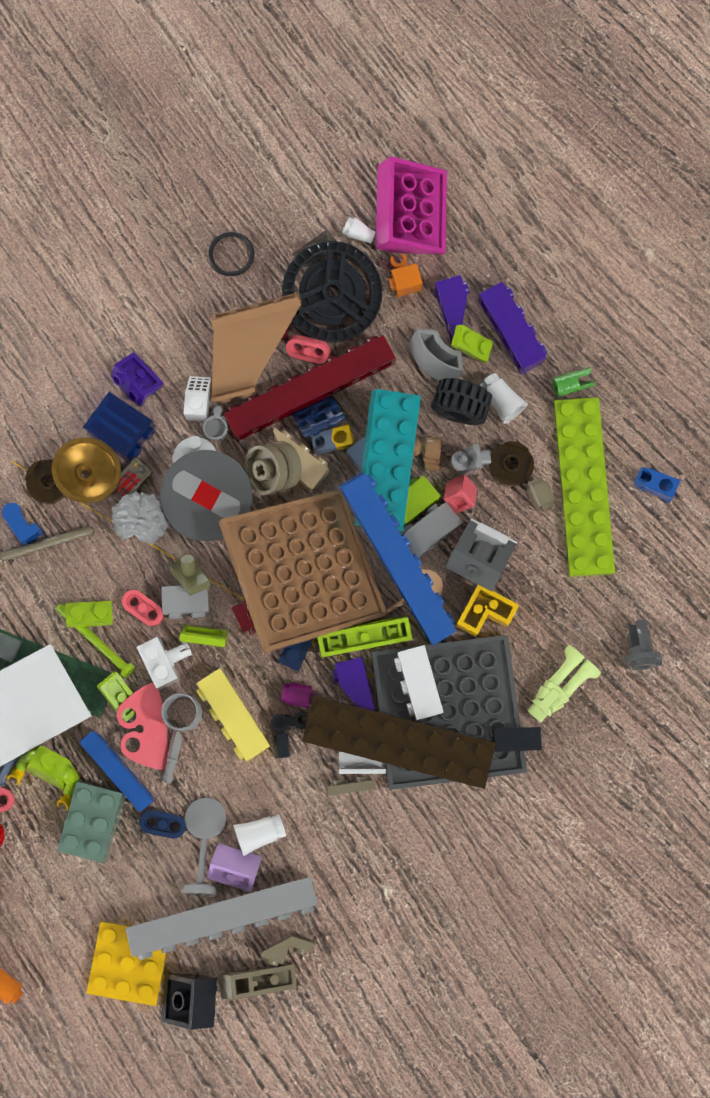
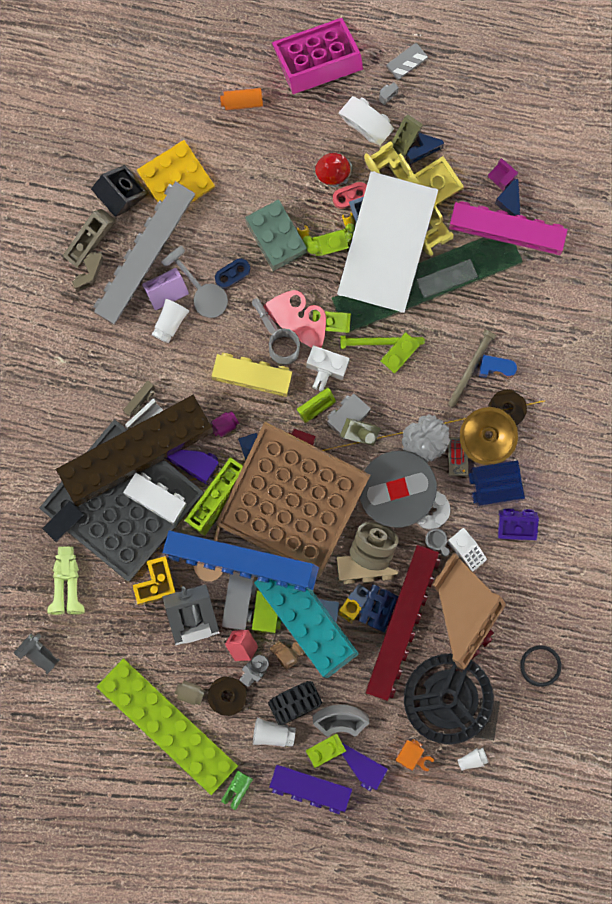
camera: 135 degrees right, 0 degrees up
(117, 771) = (289, 278): blue slope -> none
(143, 608) = (370, 386): coral plate -> none
(279, 724) = (218, 397): black bar -> none
(308, 349) = (428, 647): coral plate -> none
(411, 207) = (453, 809): dark pink slope -> none
(657, 483) = (121, 771): blue leg -> none

